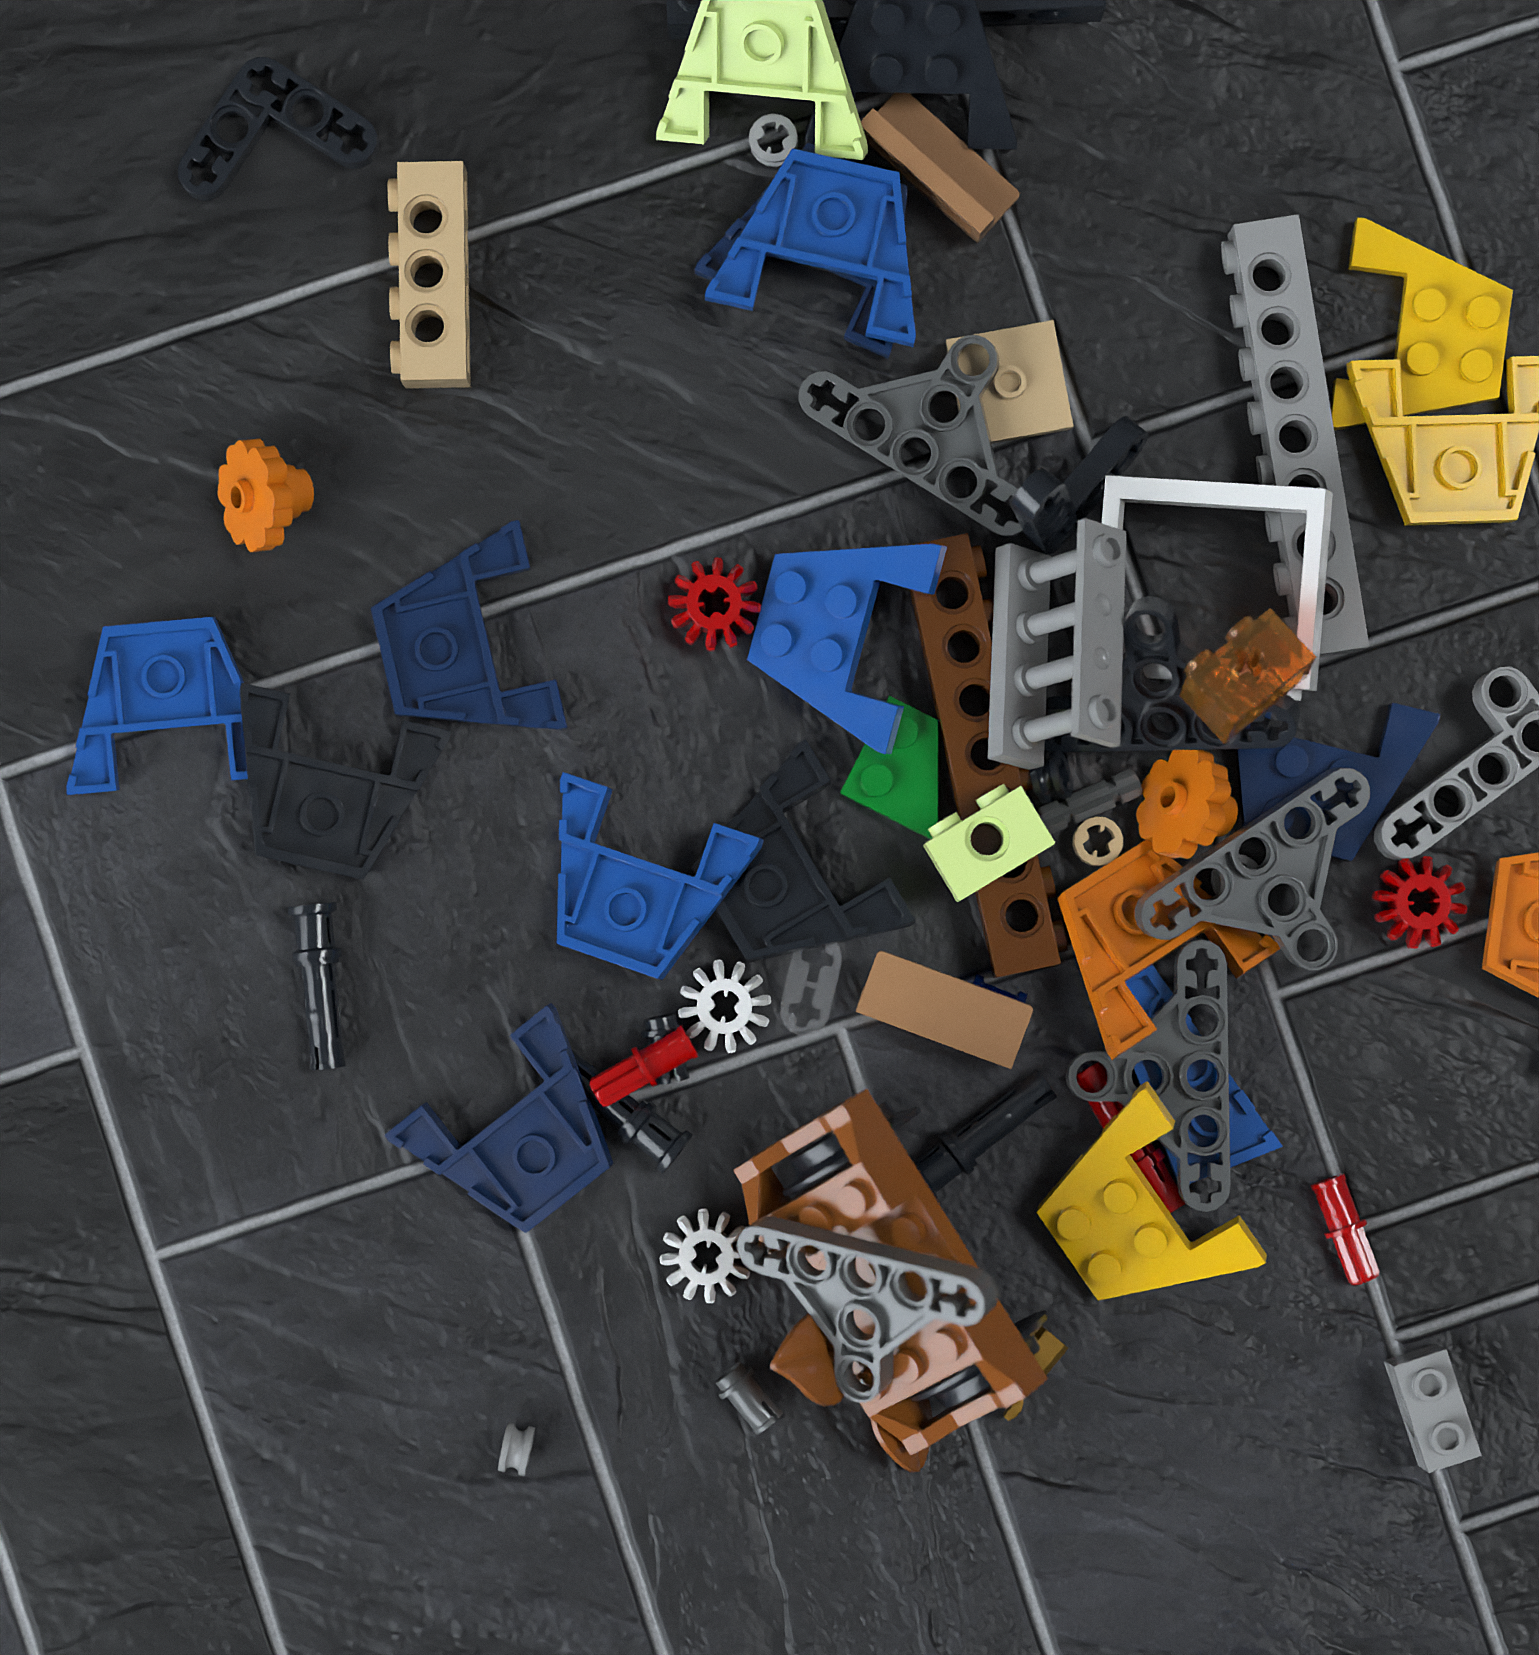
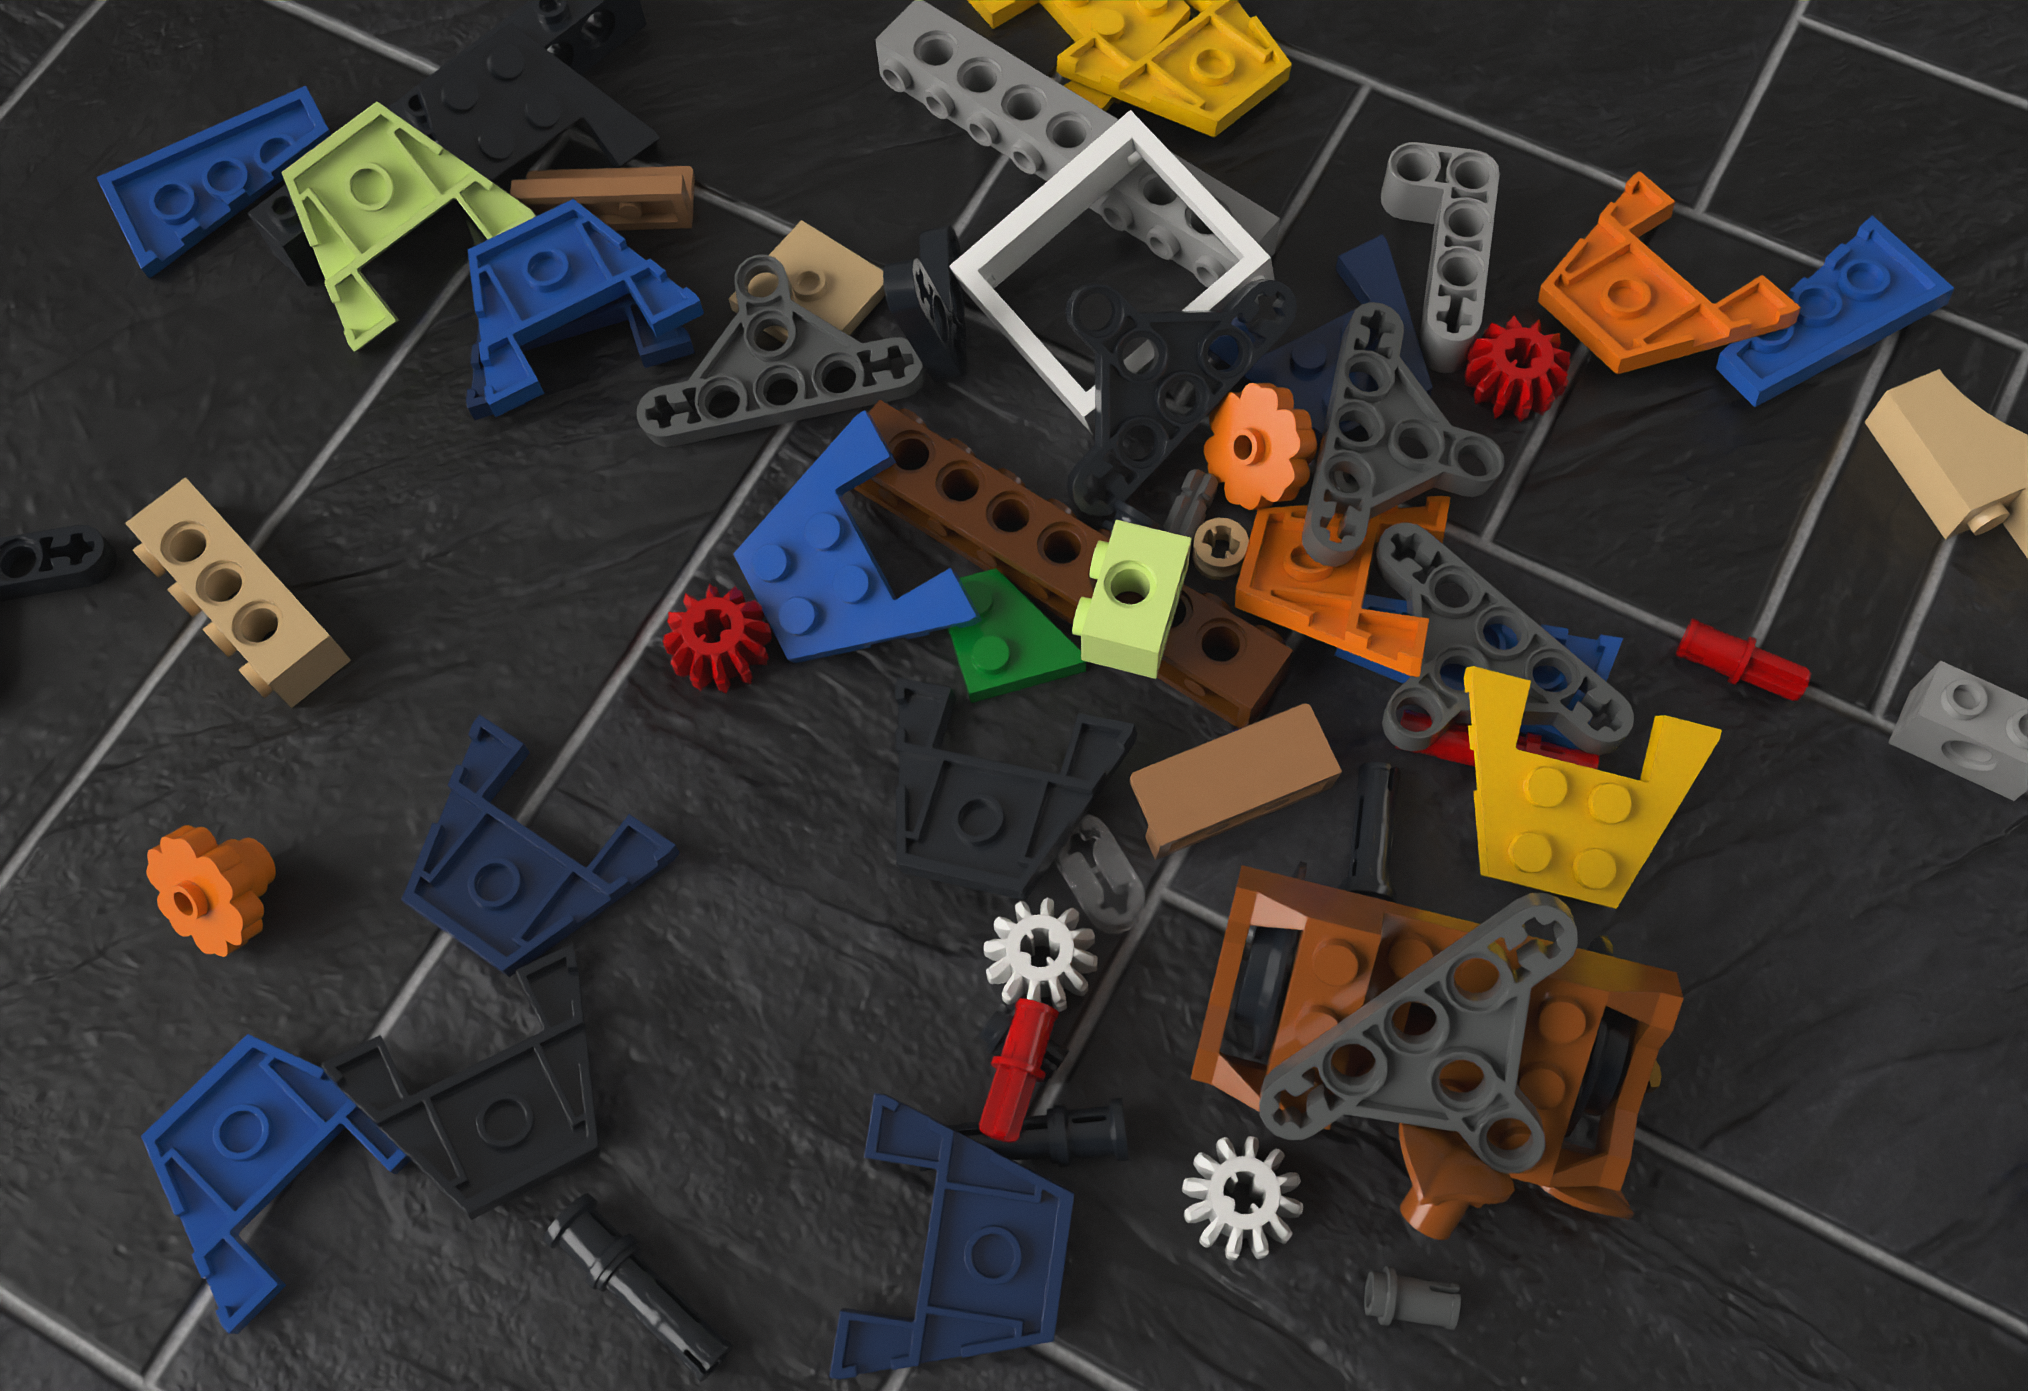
camera: 40 degrees left, 20 degrees down
(629, 906) = (873, 945): blue wing -> none
(757, 137) = (441, 270): light grey bush -> none
(1021, 645) = (993, 429): light grey fence -> none
(1232, 700) = (1210, 271): clear orange brick -> none

